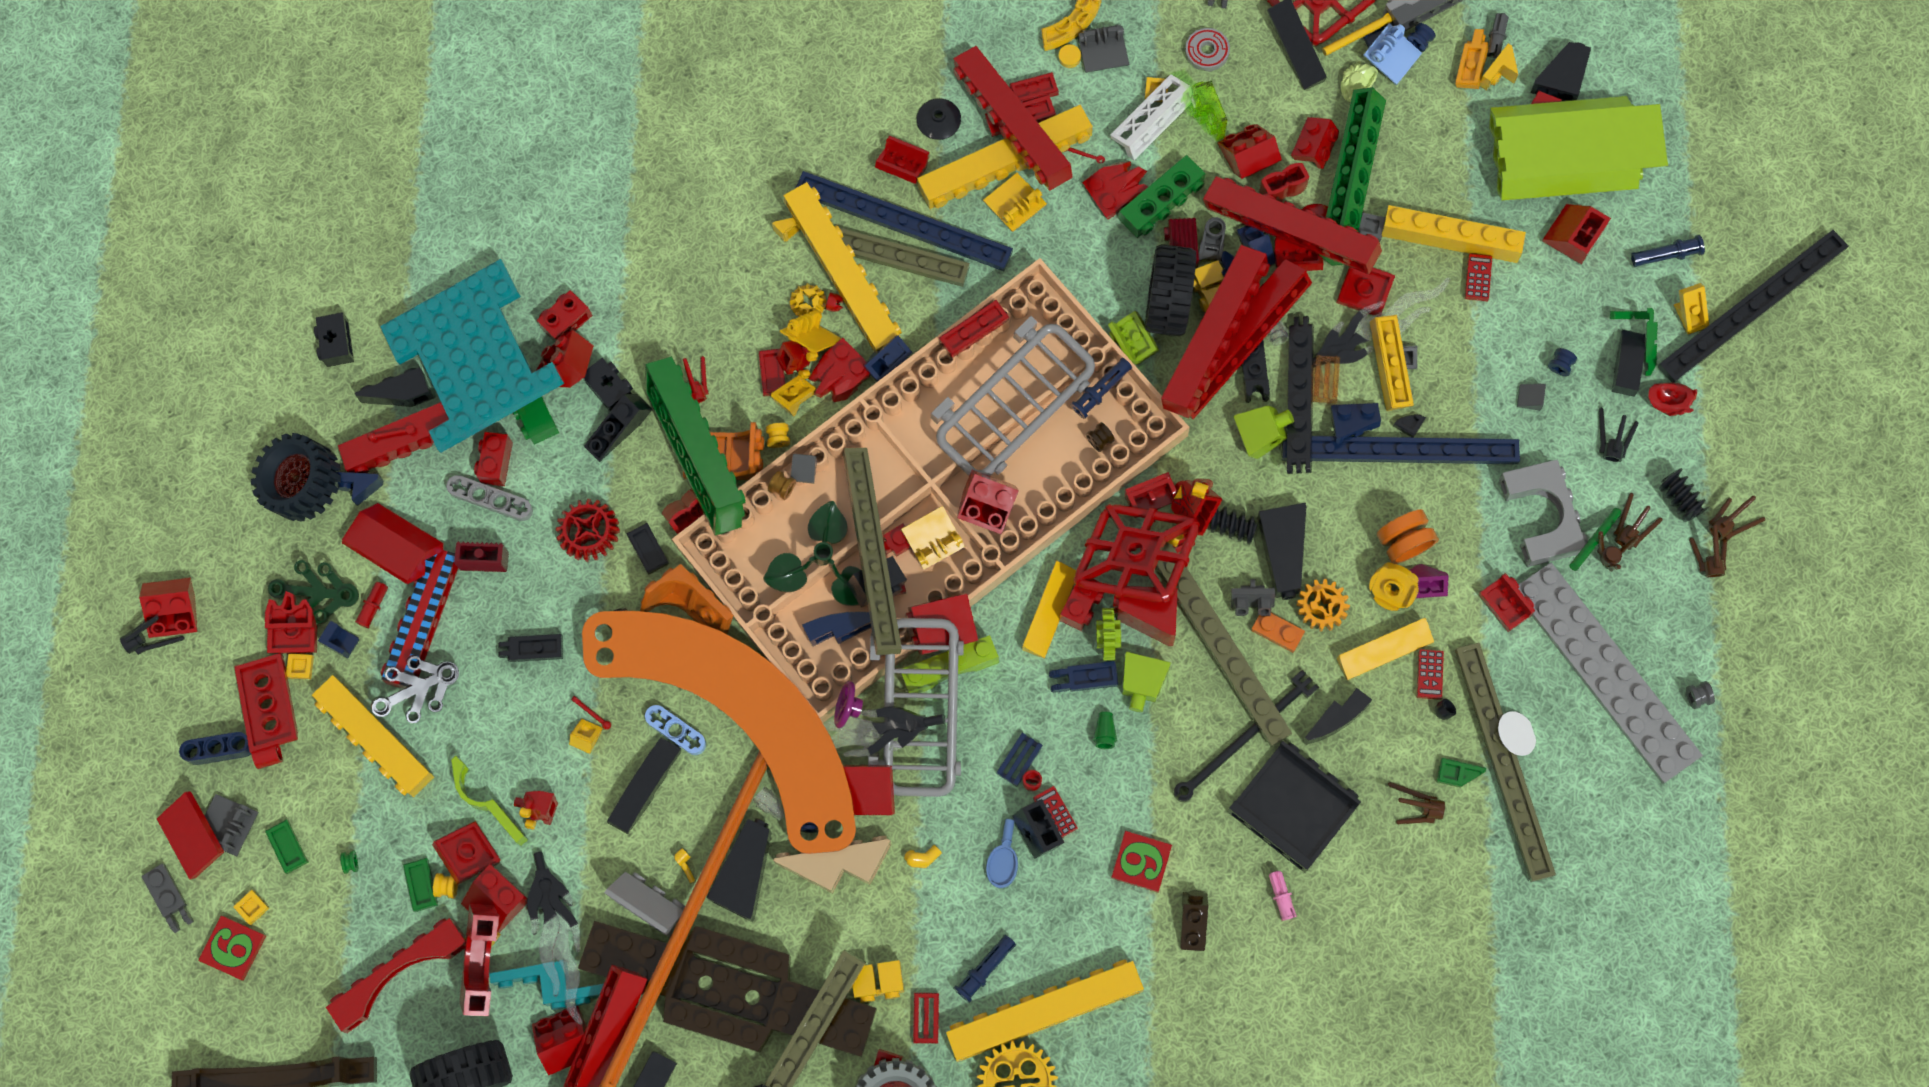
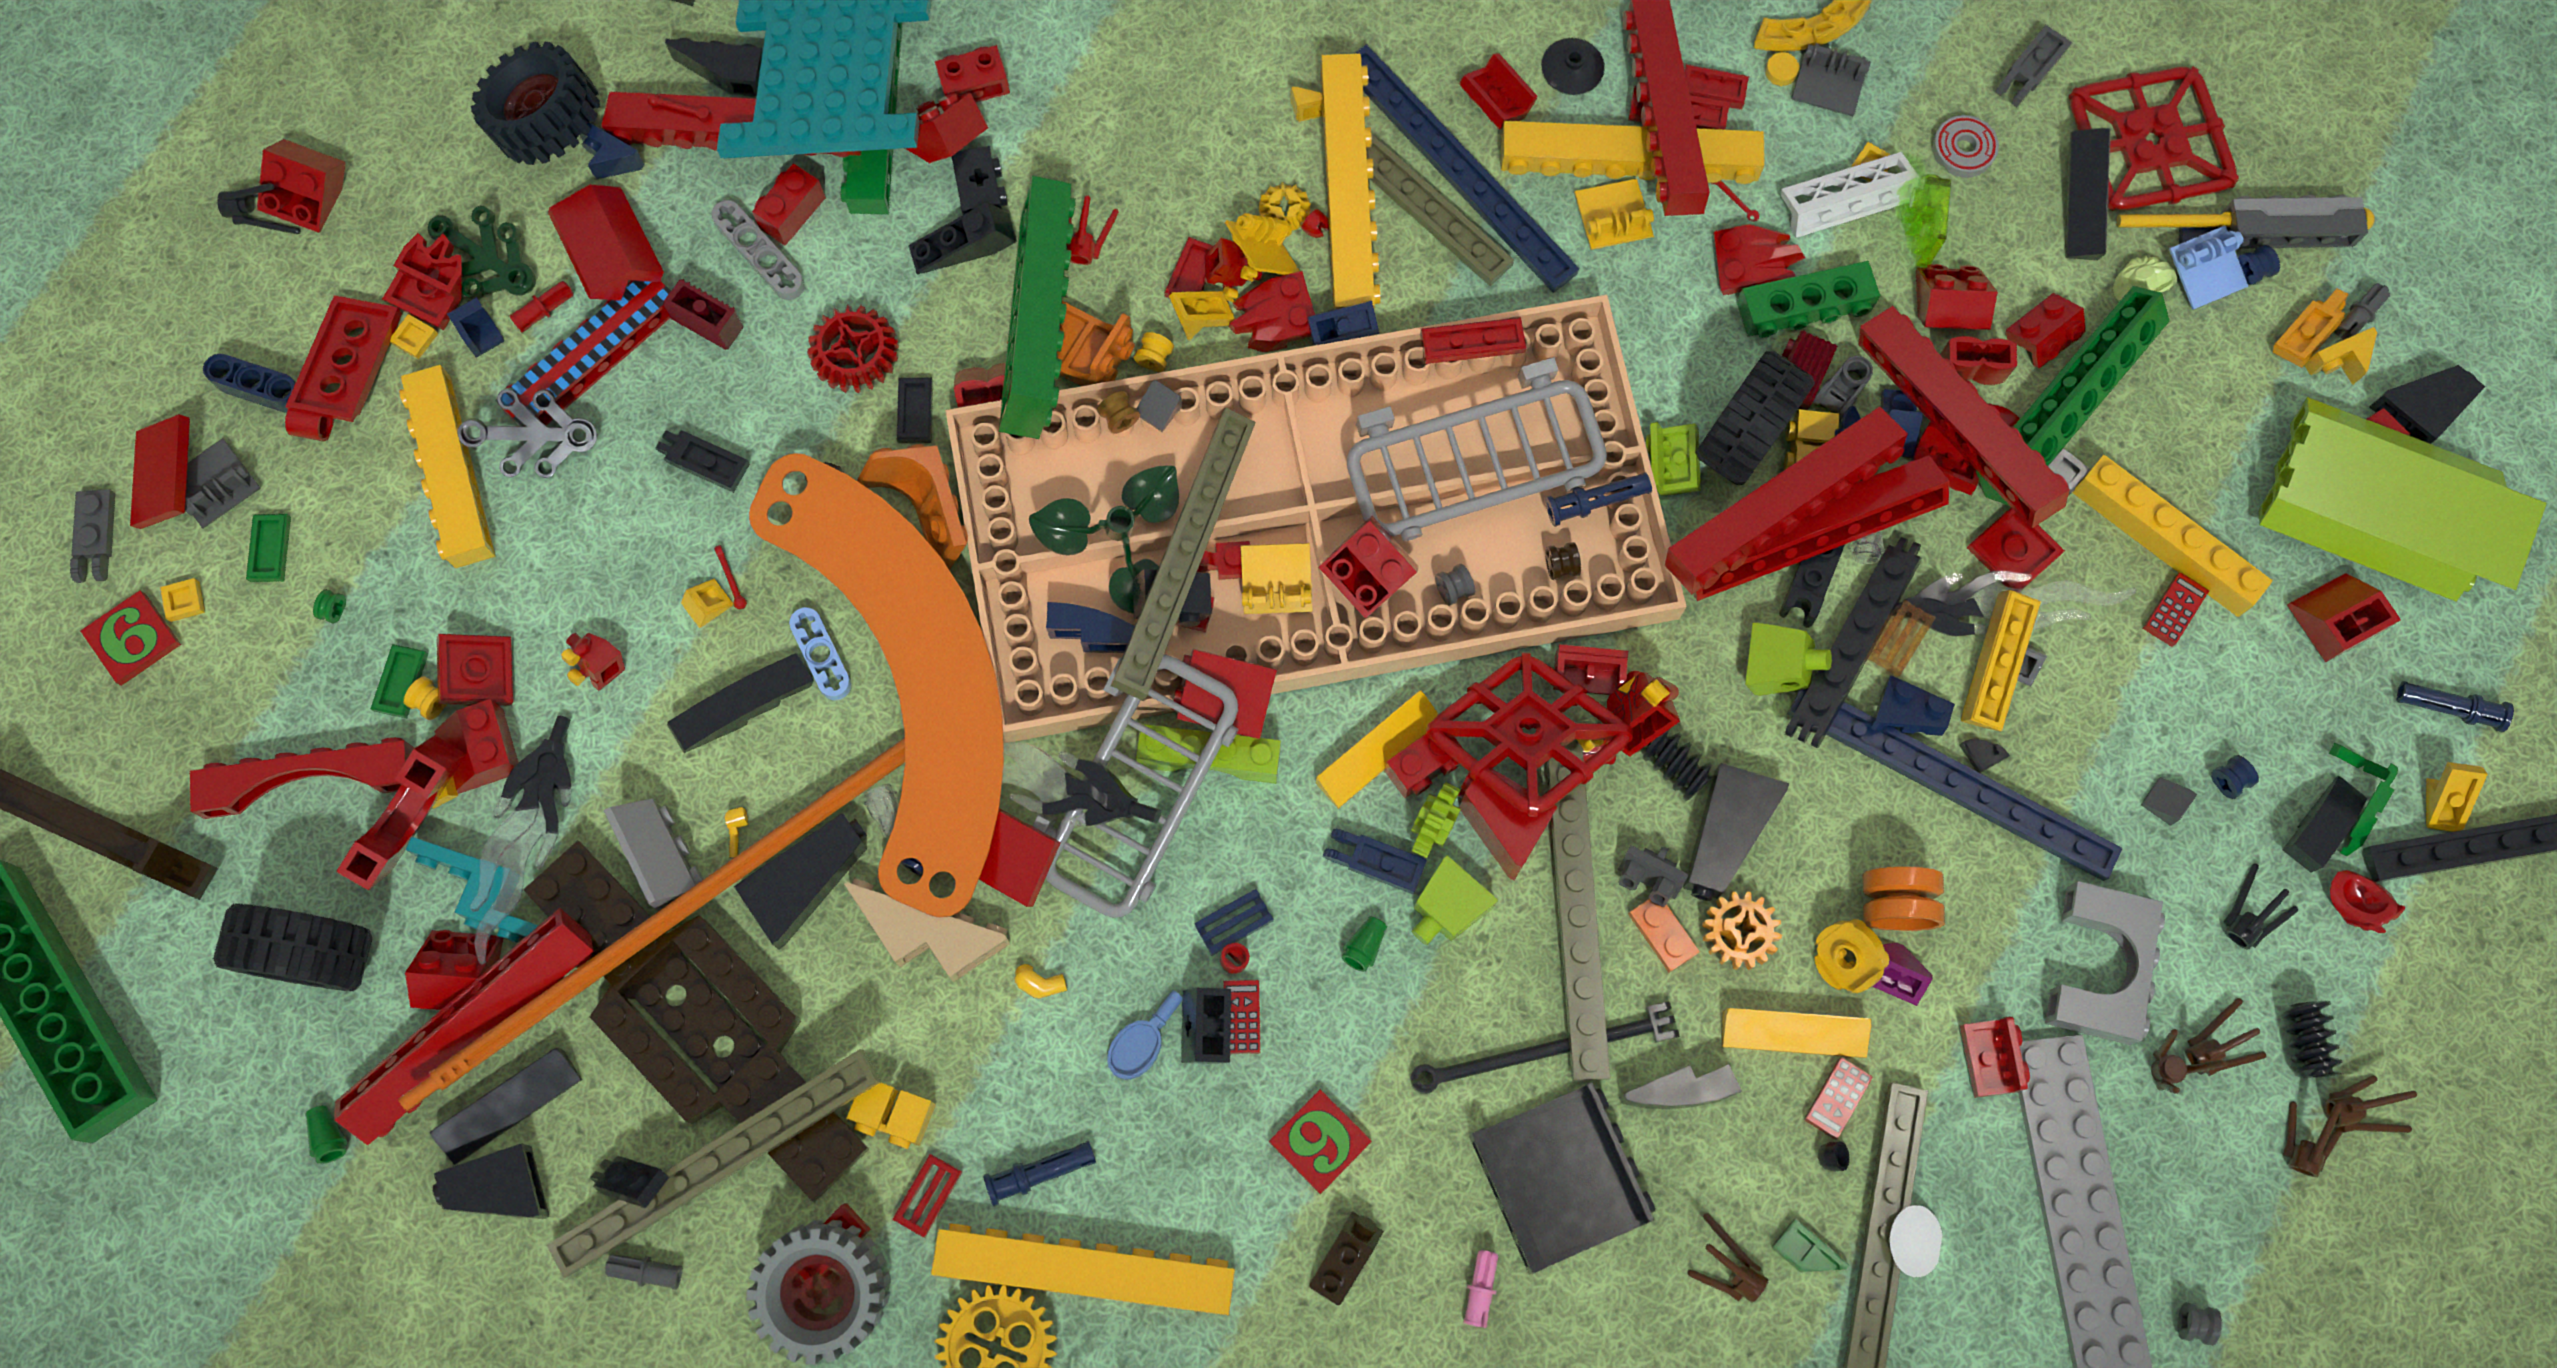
camera: 20 degrees right, 0 degrees up
(459, 773) = (524, 566): lime piece -> none
(847, 705) = (1044, 734): magenta piece -> none
(1043, 485) = (1455, 584): none -> dark grey wheel
(1593, 541) = (2158, 1036): green bar -> none

